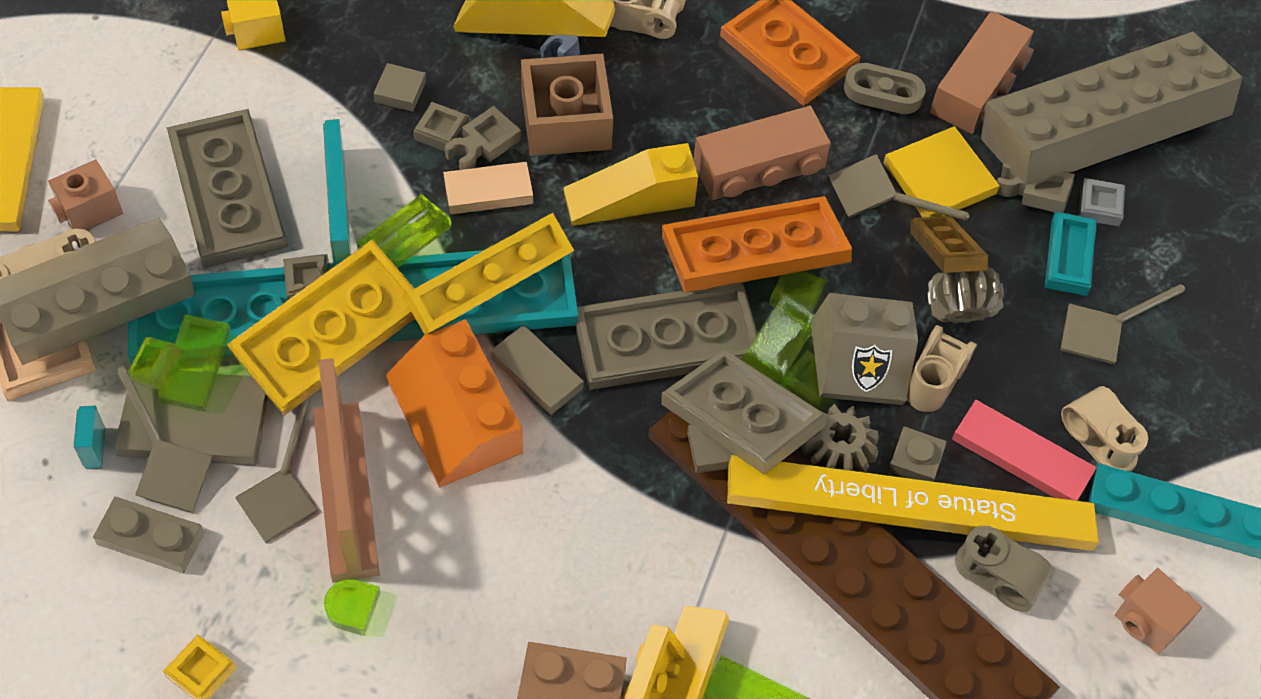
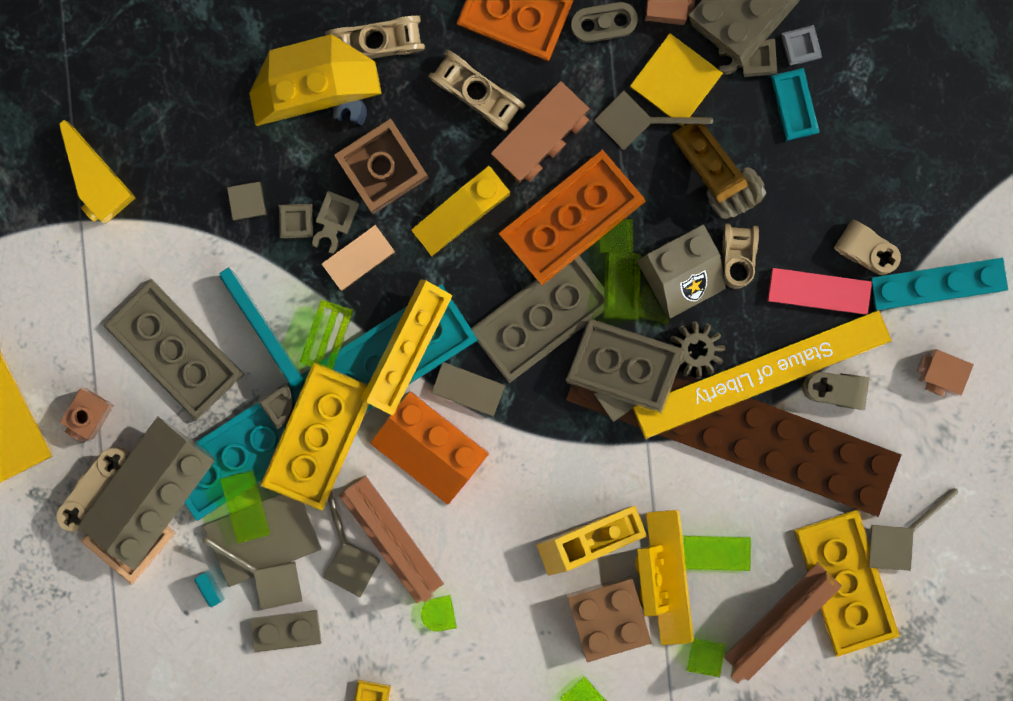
camera: 25 degrees left, 30 degrees up
(155, 363) = (222, 523): clear neon green tile -> none
(591, 599) = (591, 541): none -> yellow slope
(709, 85) = (464, 75): none -> tan piece
(917, 455) = (750, 328): dark tan plate -> none
(1098, 333) = (834, 163): dark tan piece -> none

